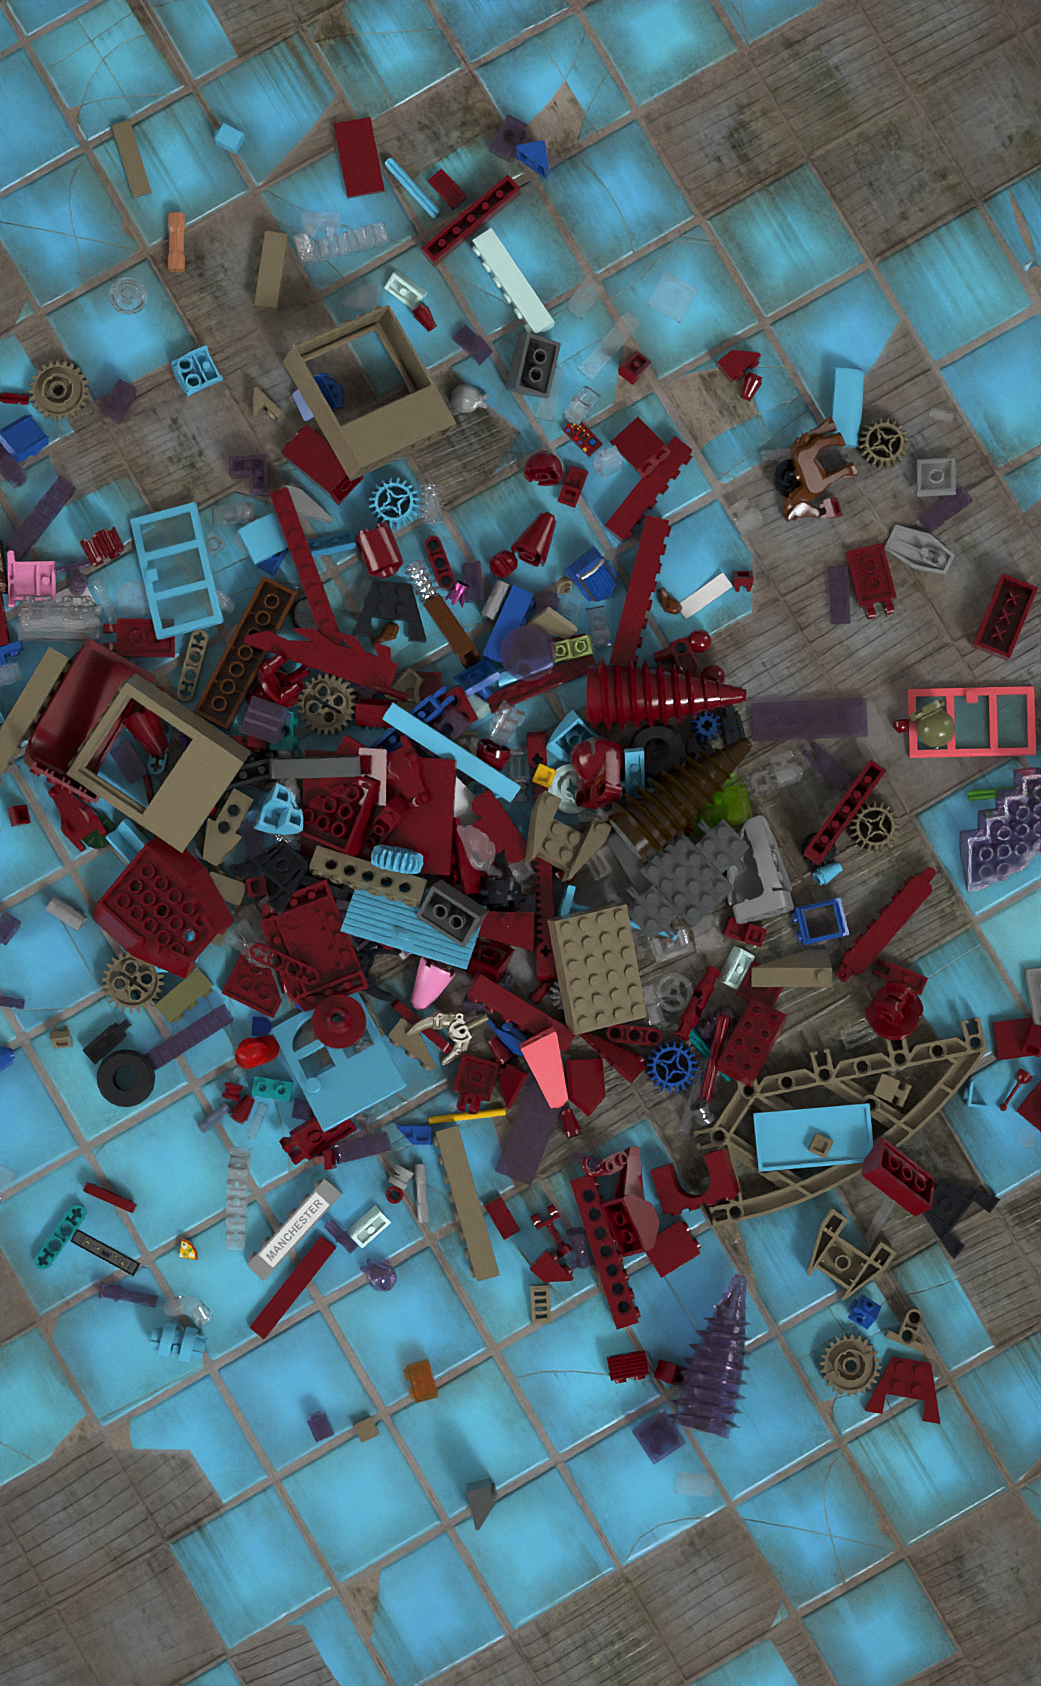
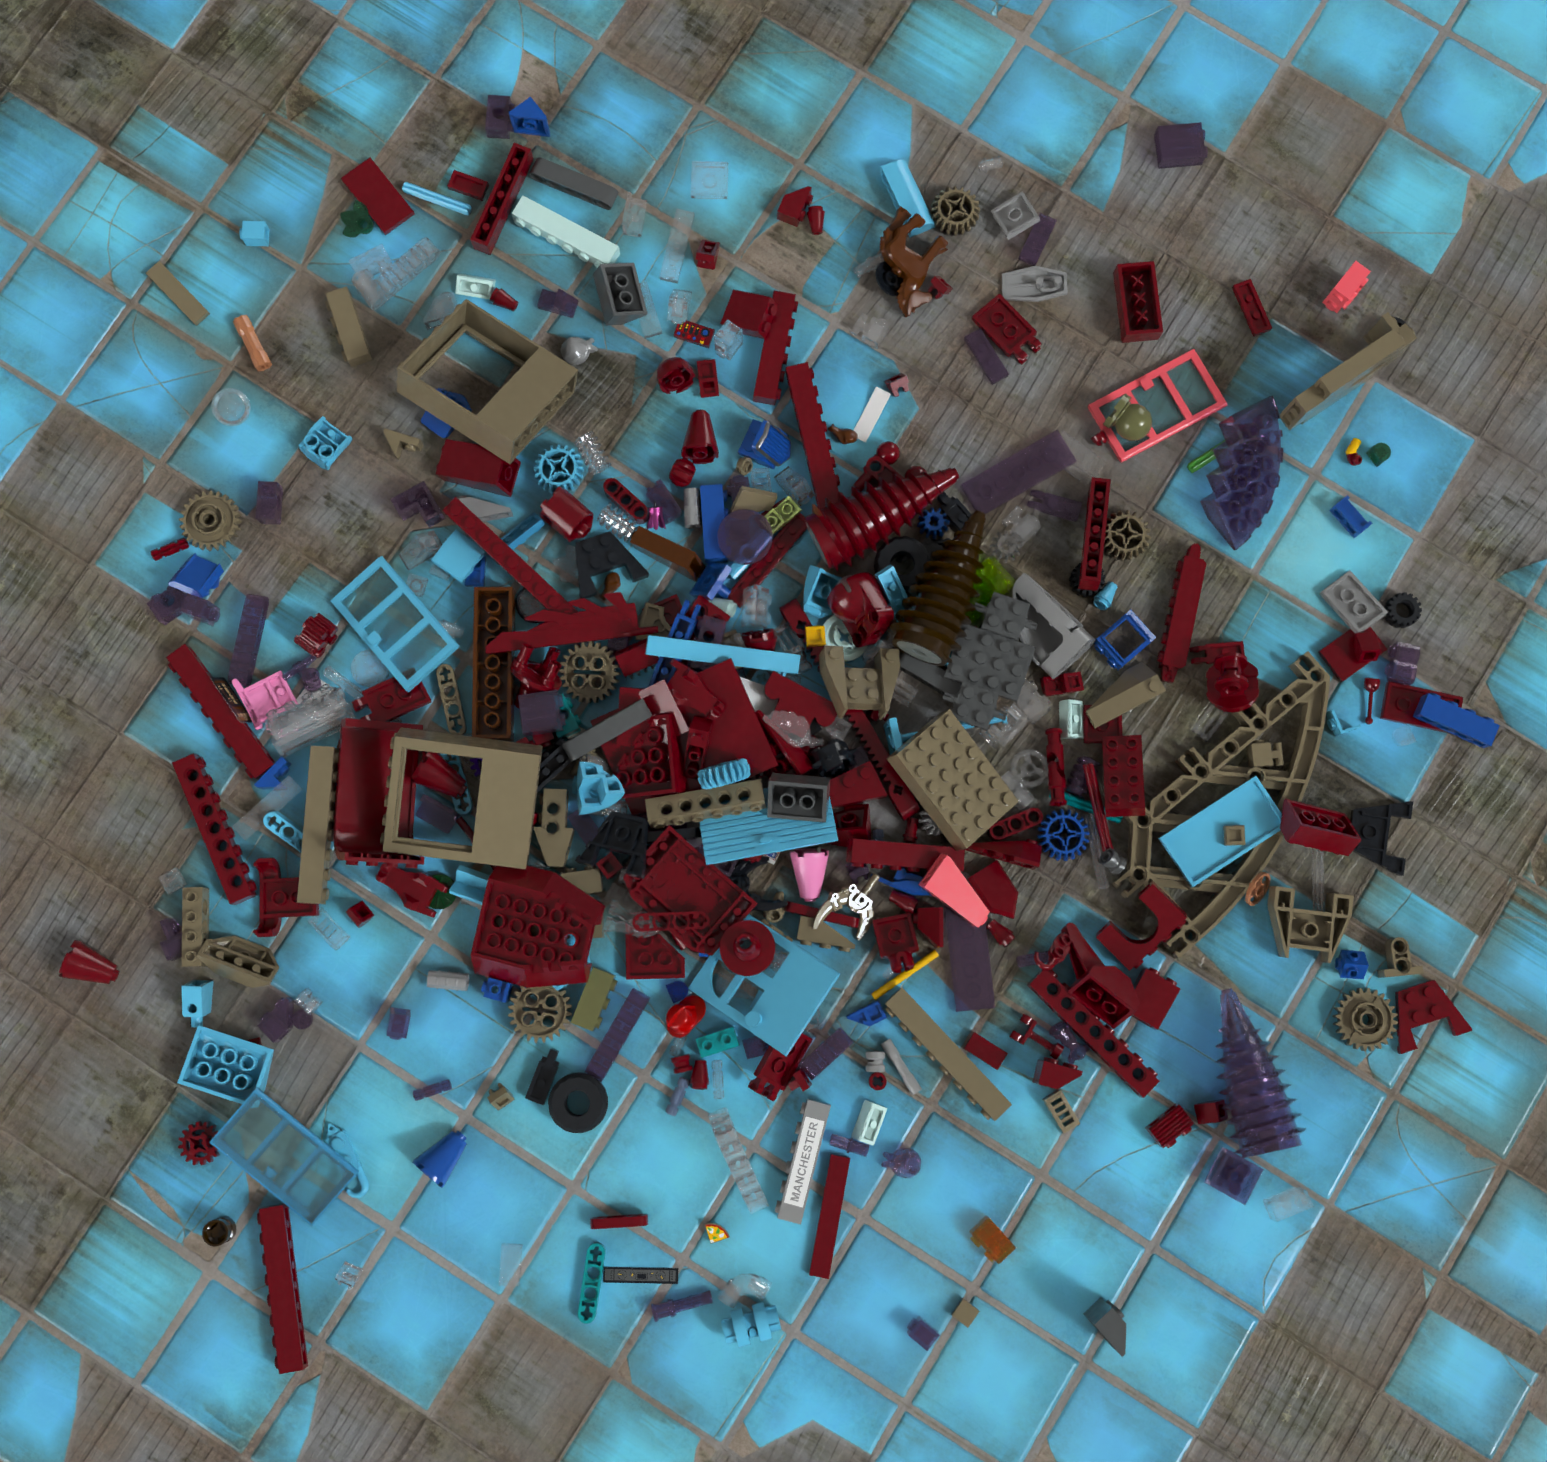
camera: 30 degrees left, 5 degrees down
(111, 947) = (504, 990): none -> blue brick
(326, 170) = (355, 219): none -> clear green plate
(380, 1005) = (775, 915): none -> dark tan animal
(545, 238) = (573, 183): none -> dark grey beam
(817, 1203) = (1257, 888): none -> nougat wheel

